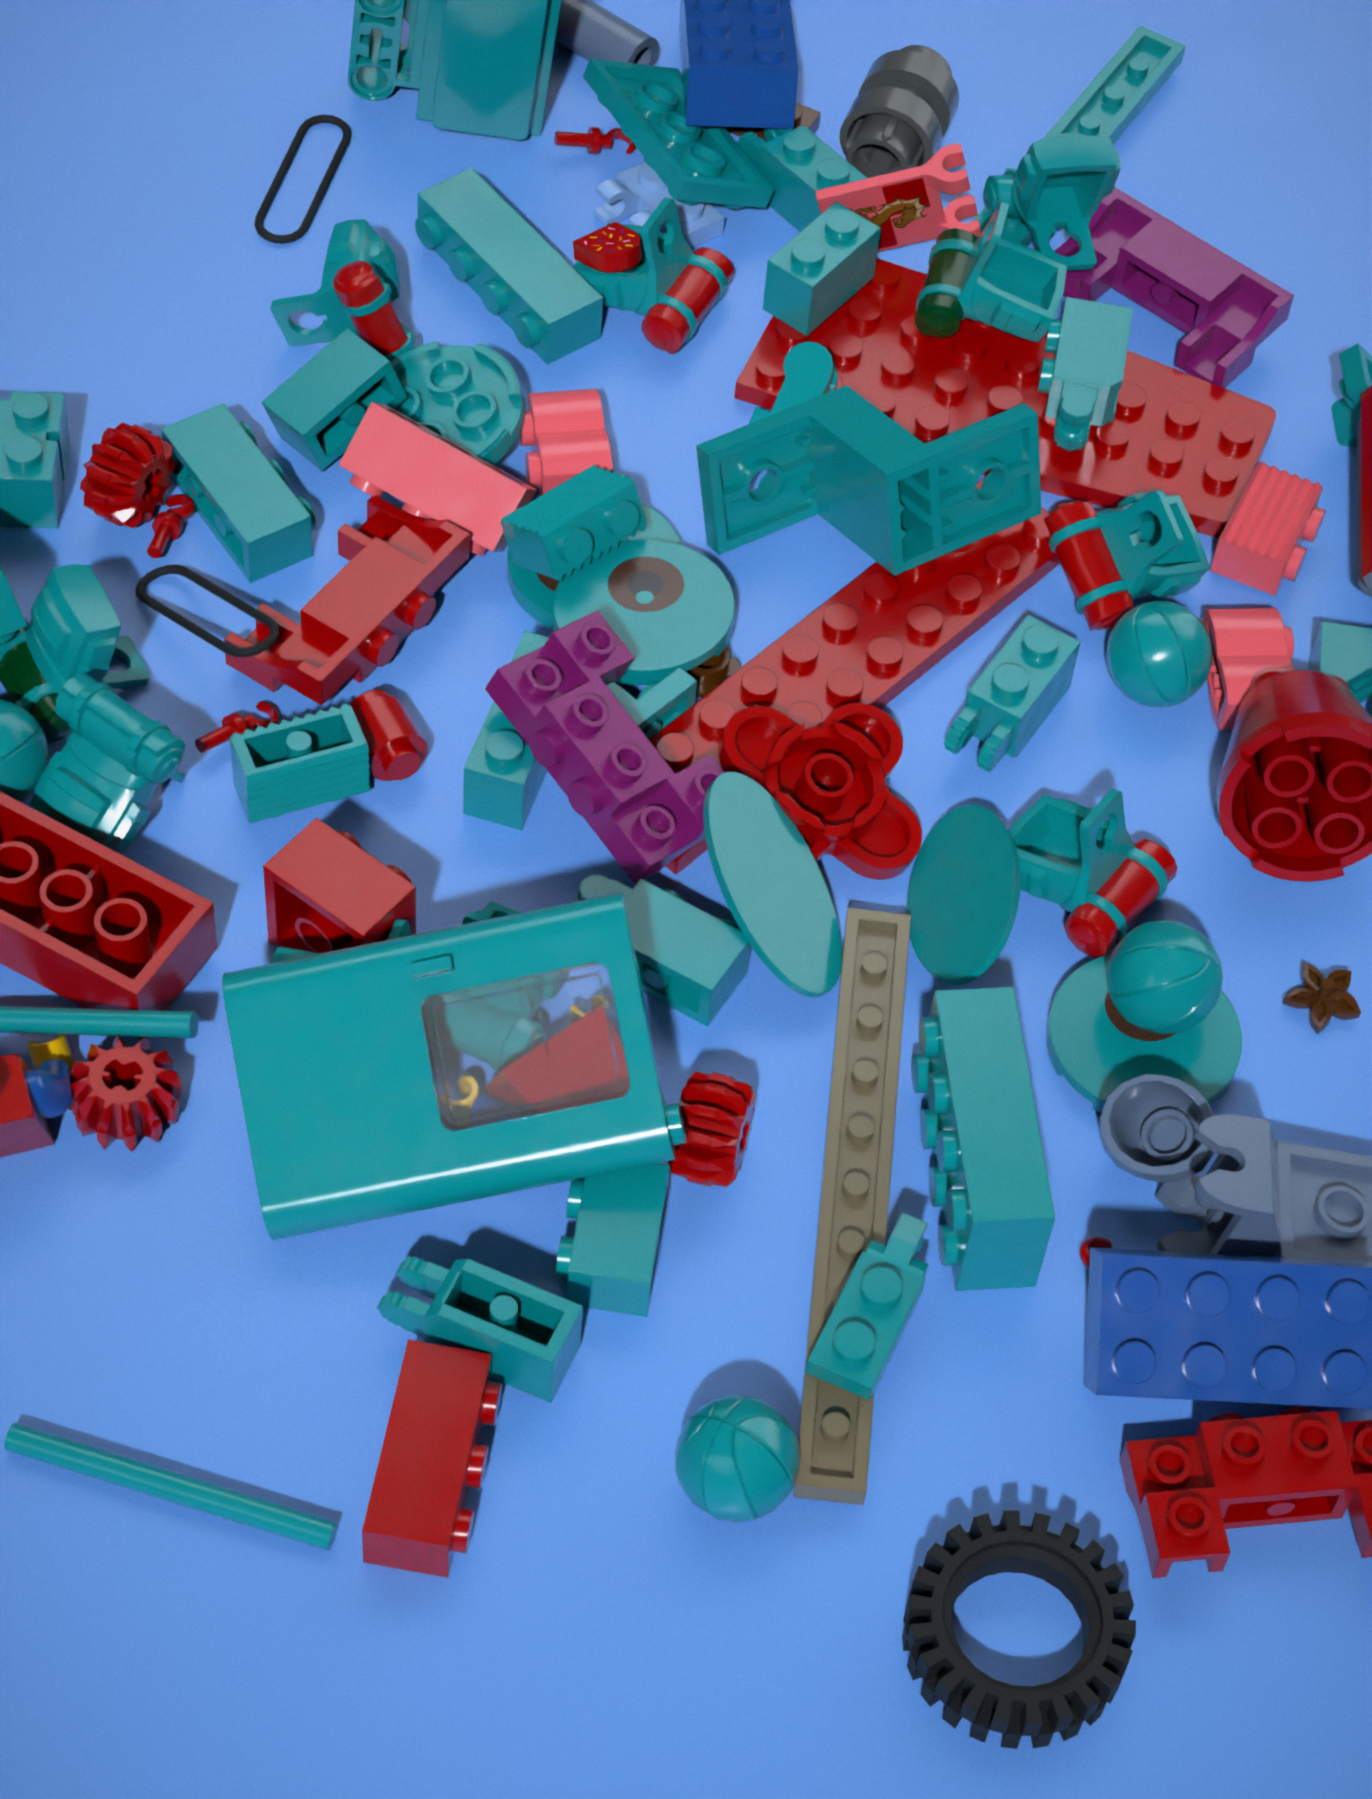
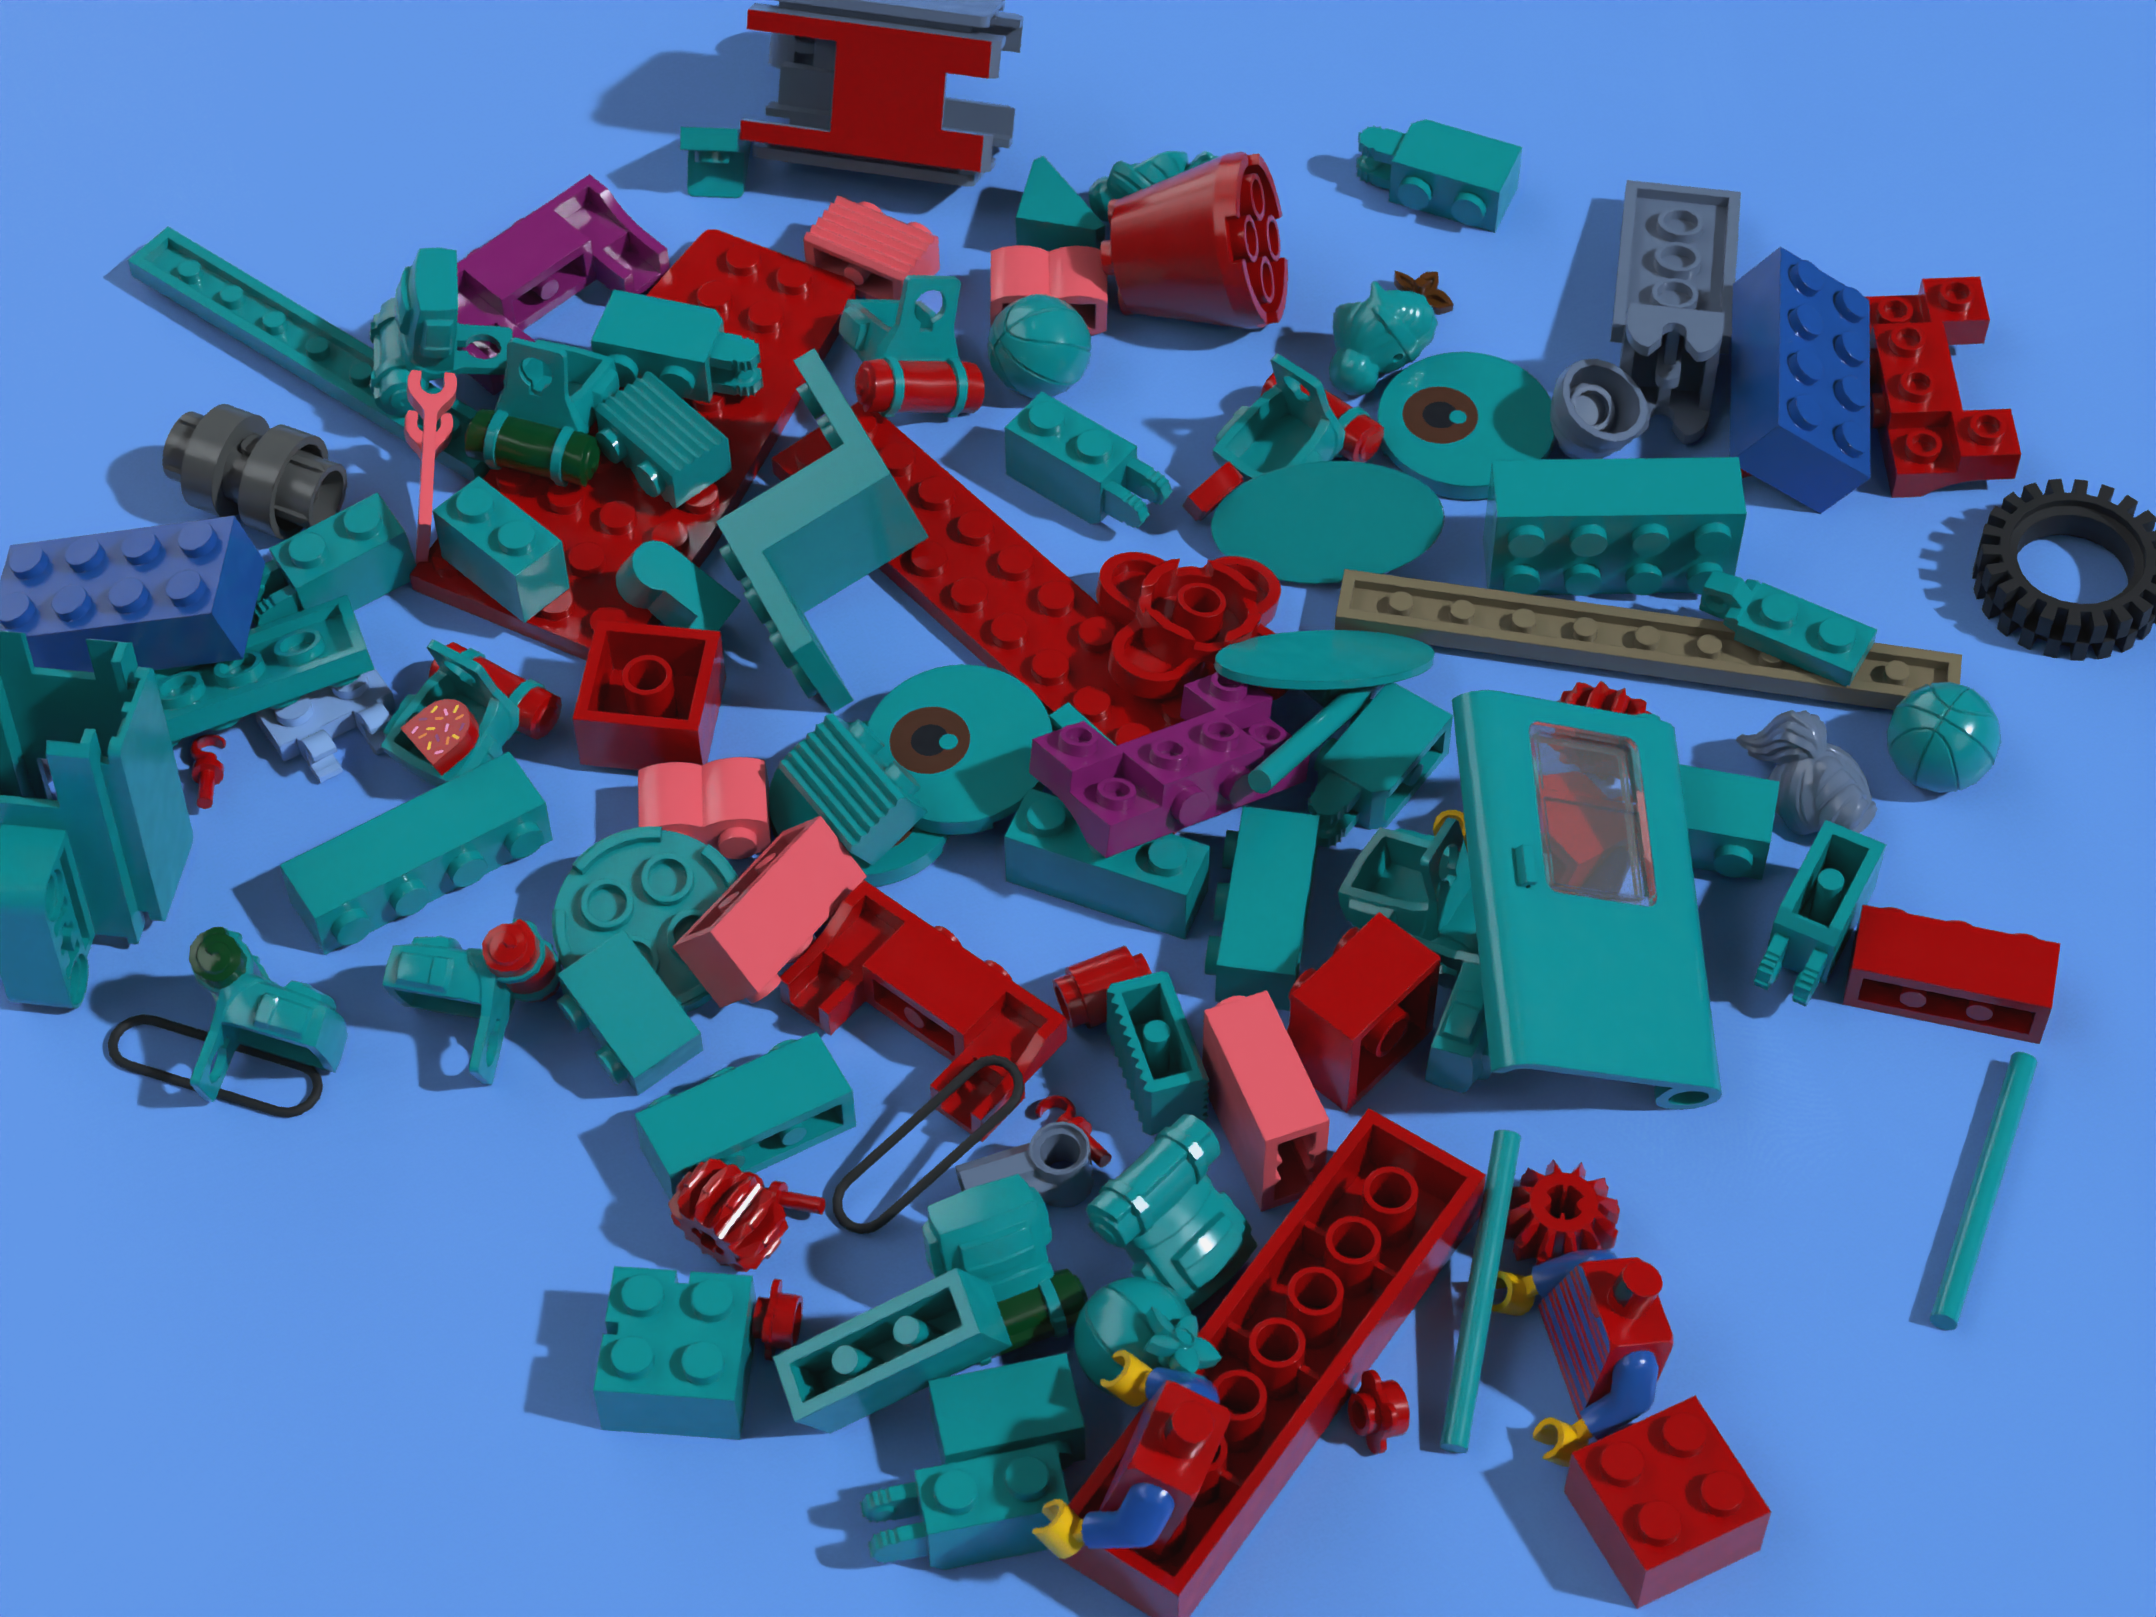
camera: 80 degrees left, 0 degrees up
(35, 524) = (777, 1320): none -> red plate
(177, 684) = (1032, 1160): none -> sand blue piece
(228, 827) = (1264, 1098): none -> coral brick
(325, 168) = (258, 1012): none -> teal piece
(484, 854) = (1263, 904): none -> teal brick
(647, 850) = (1309, 737): none -> teal axle
(677, 388) = (648, 695): none -> red brick
(679, 1343) = (1814, 776): none -> sand blue hair
(972, 369) = (661, 440): none -> teal brick
(989, 794) = (1212, 491): none -> red tile
(1164, 977) = (1441, 376): teal piece -> none
(1238, 934) = (1378, 337): none -> teal piece

